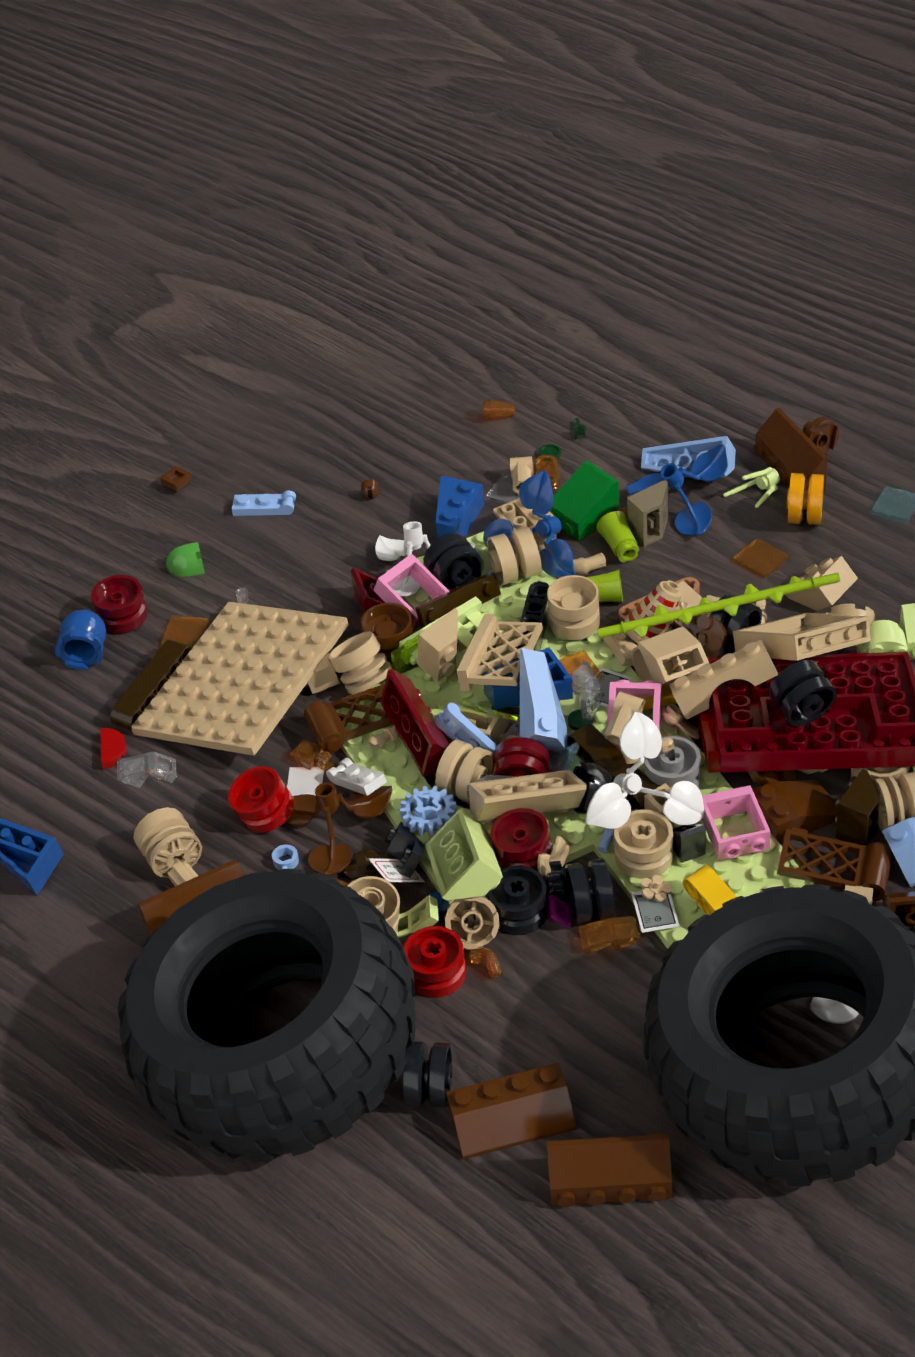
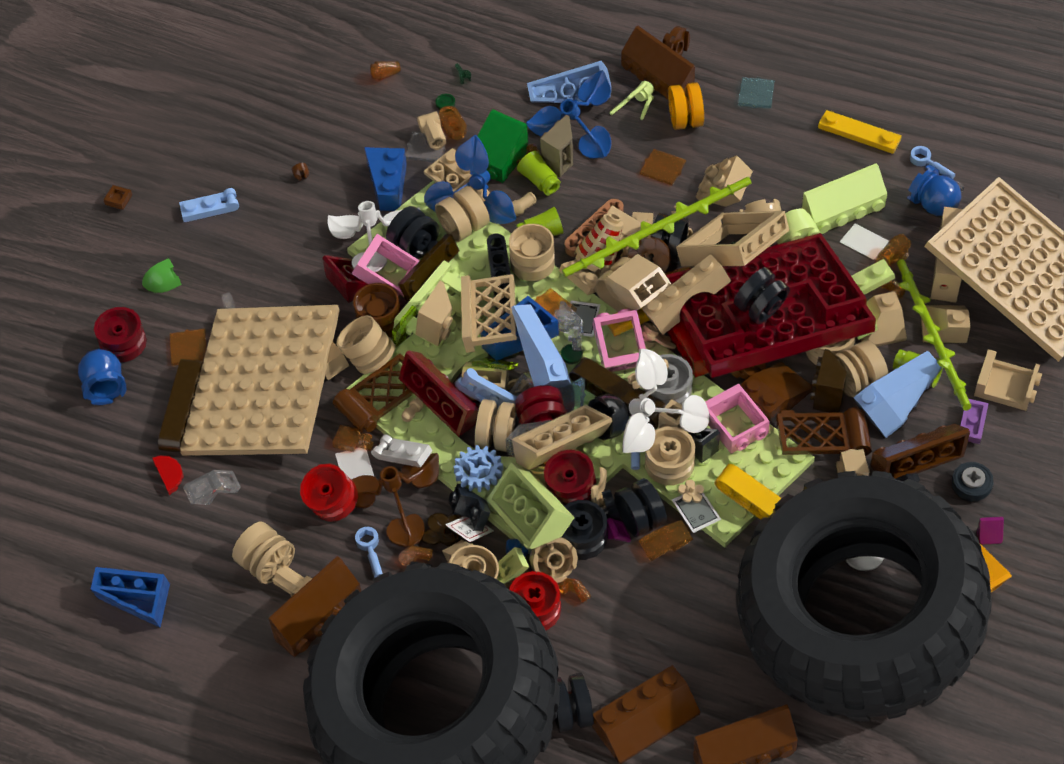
camera: 20 degrees left, 10 degrees up
(622, 711) = (617, 343): tan piece -> none

